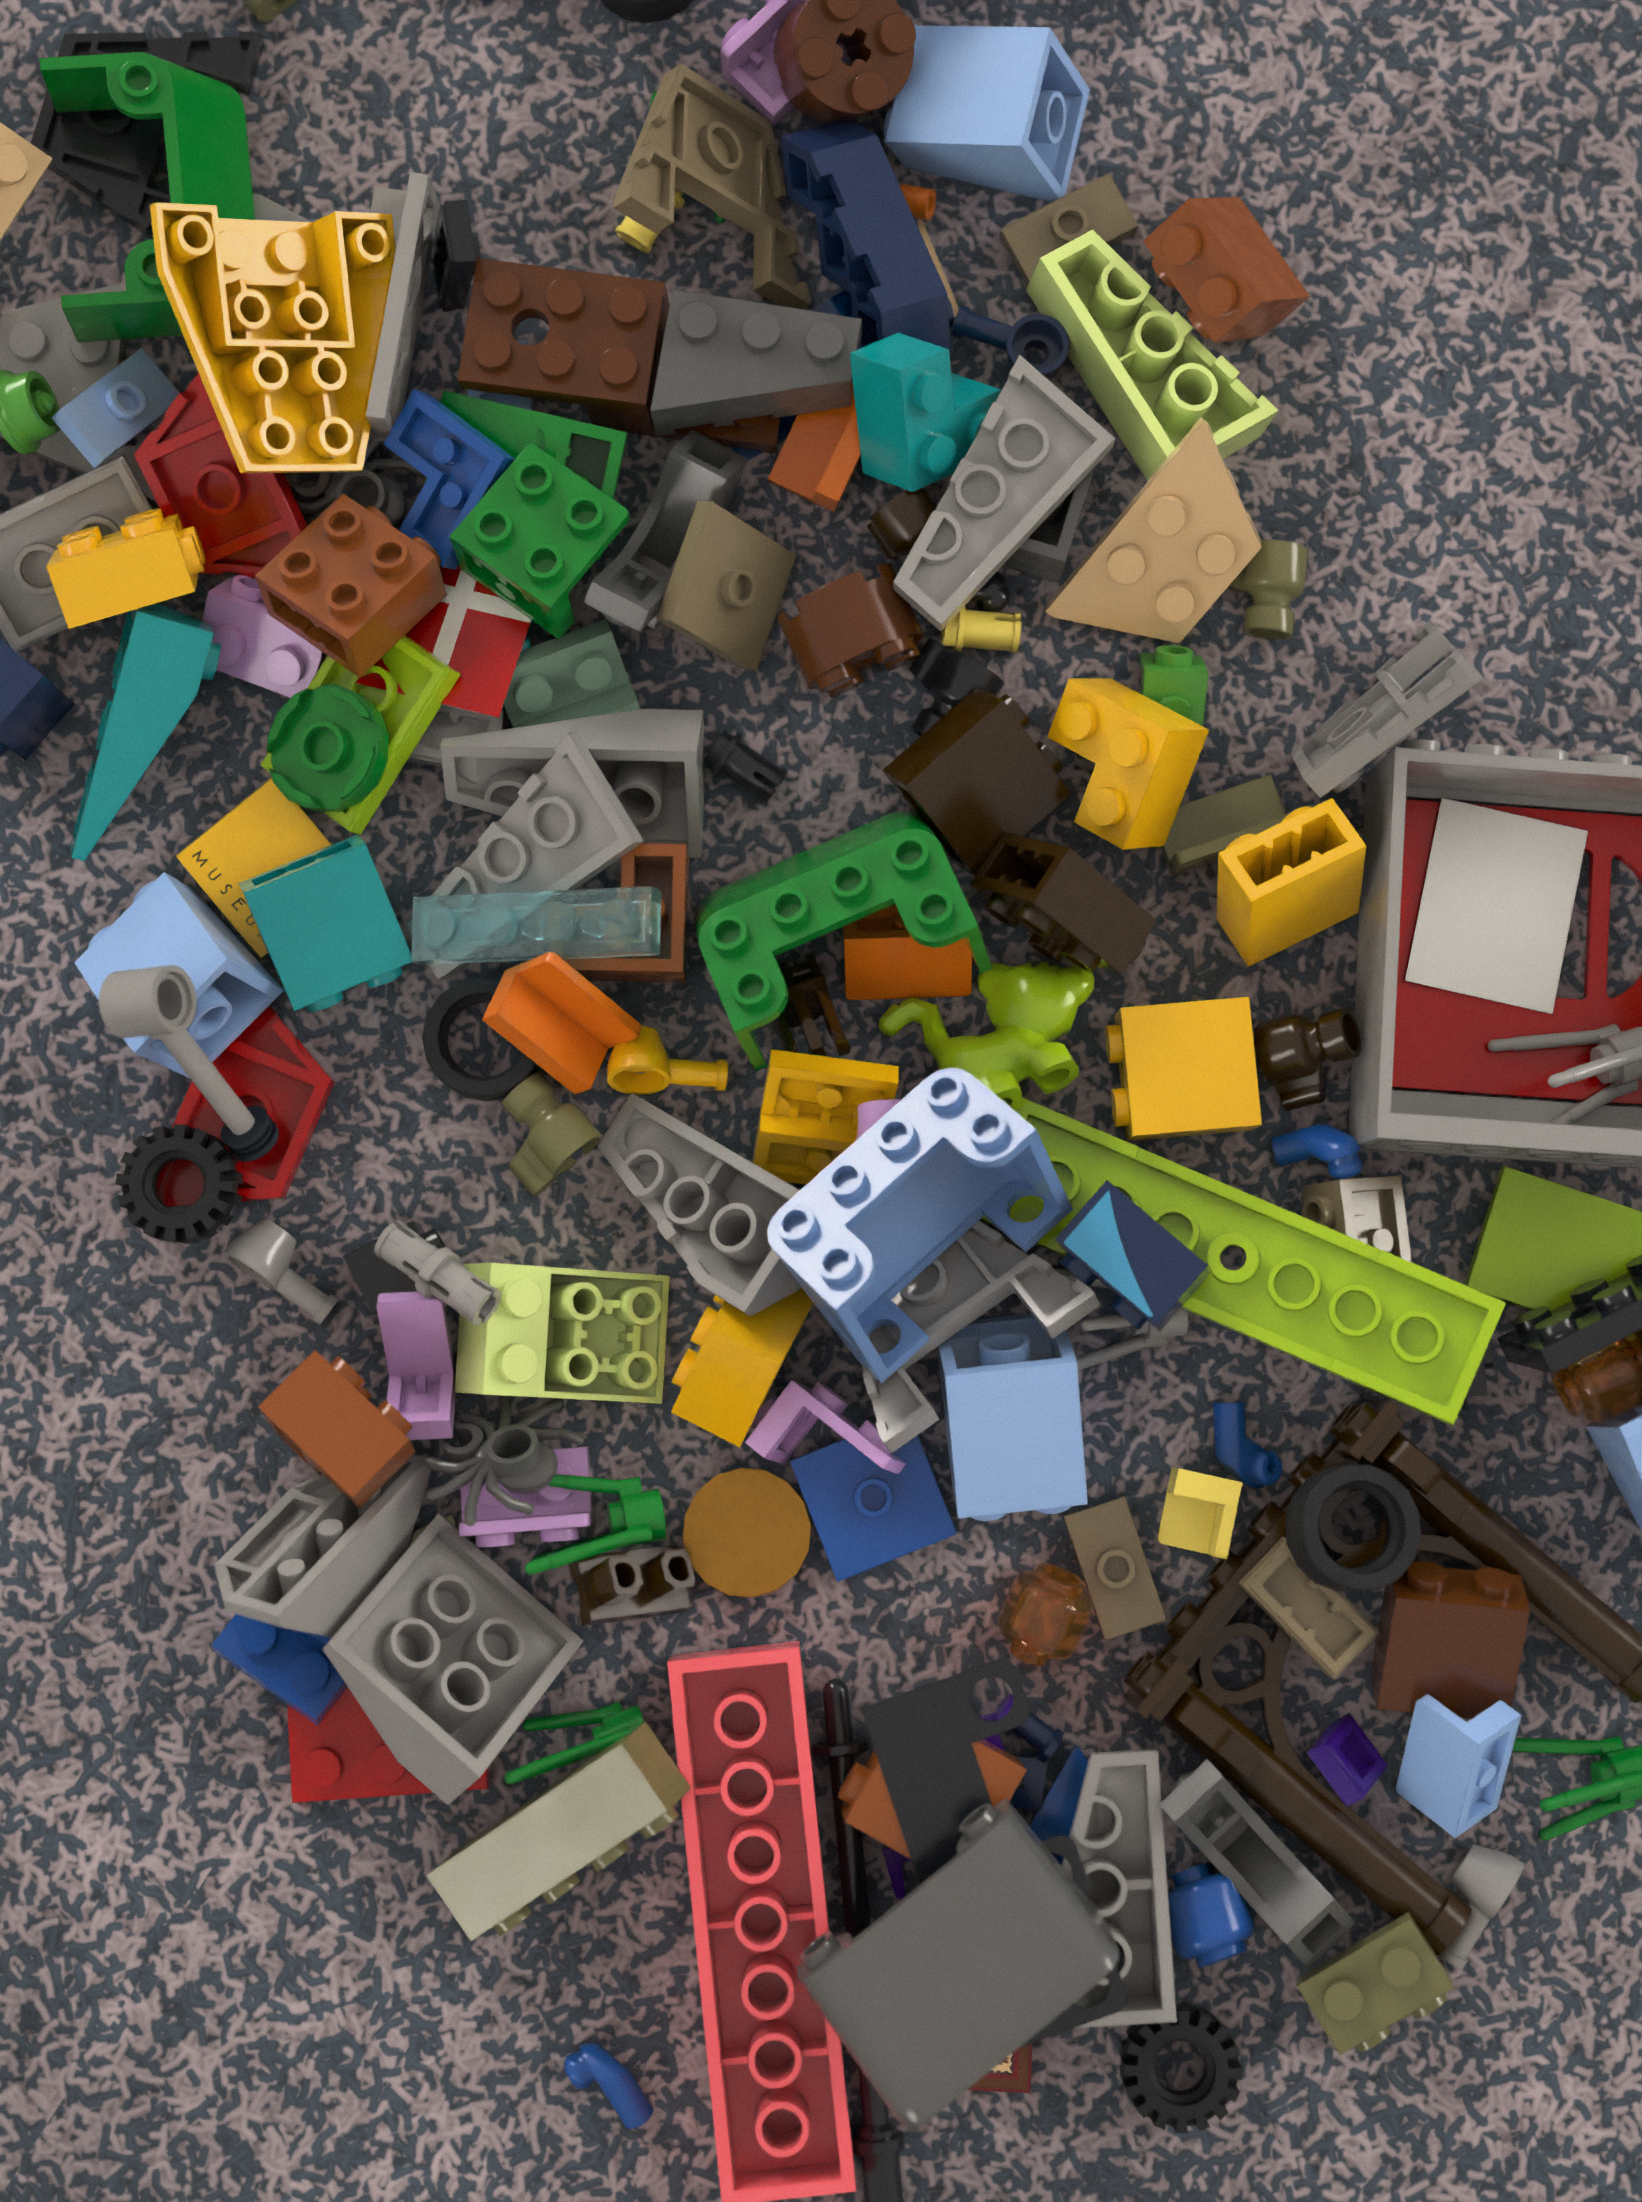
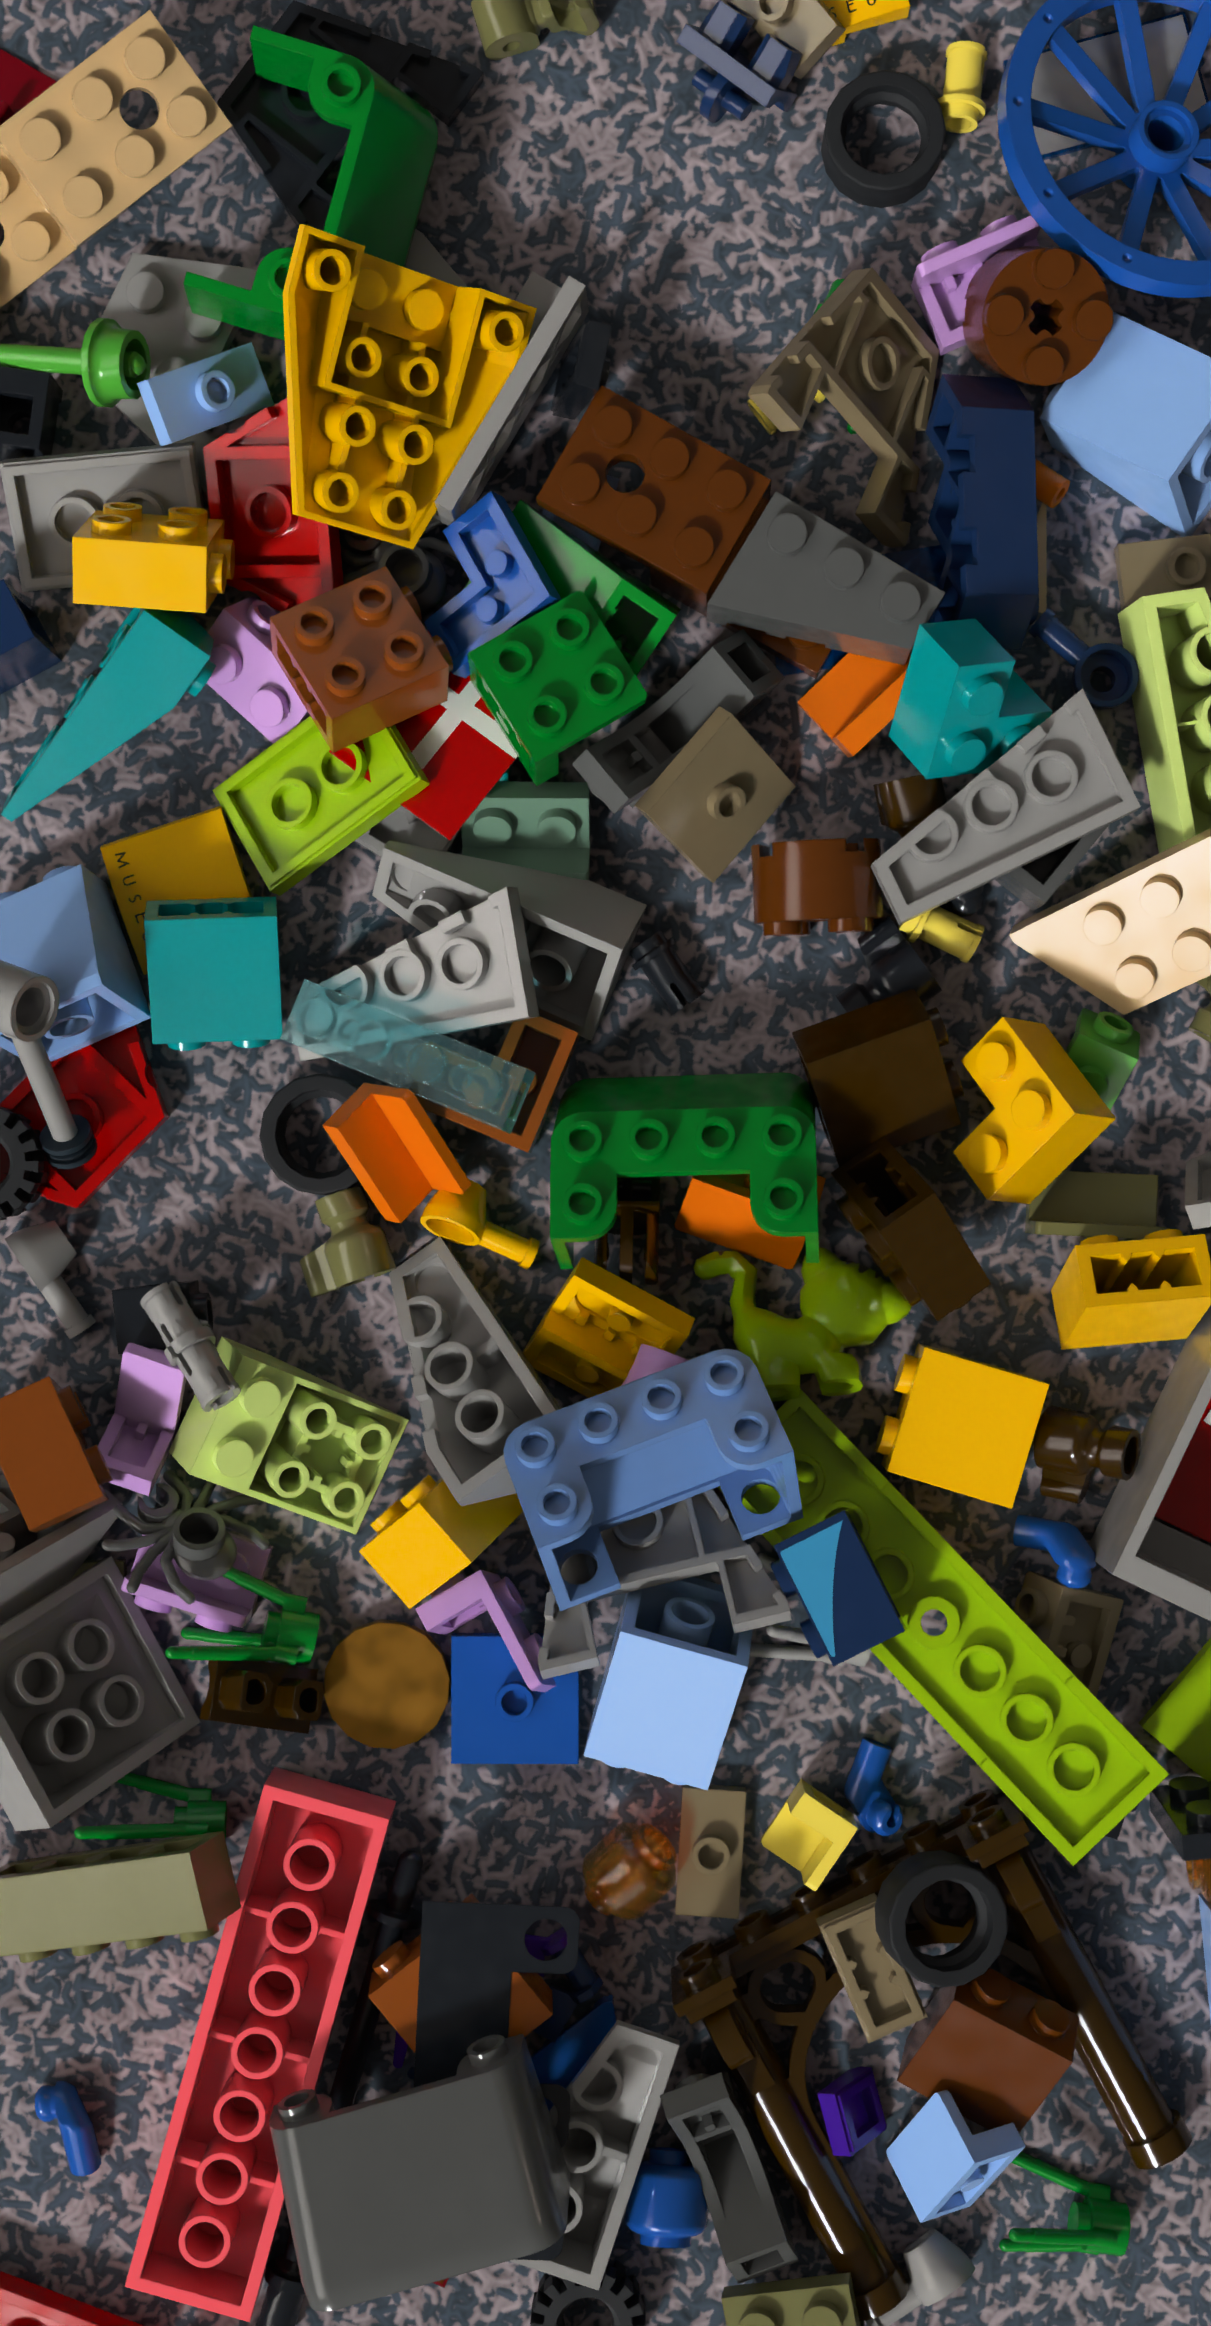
camera: 20 degrees right, 5 degrees up
(330, 766) = (283, 822): green tile -> none

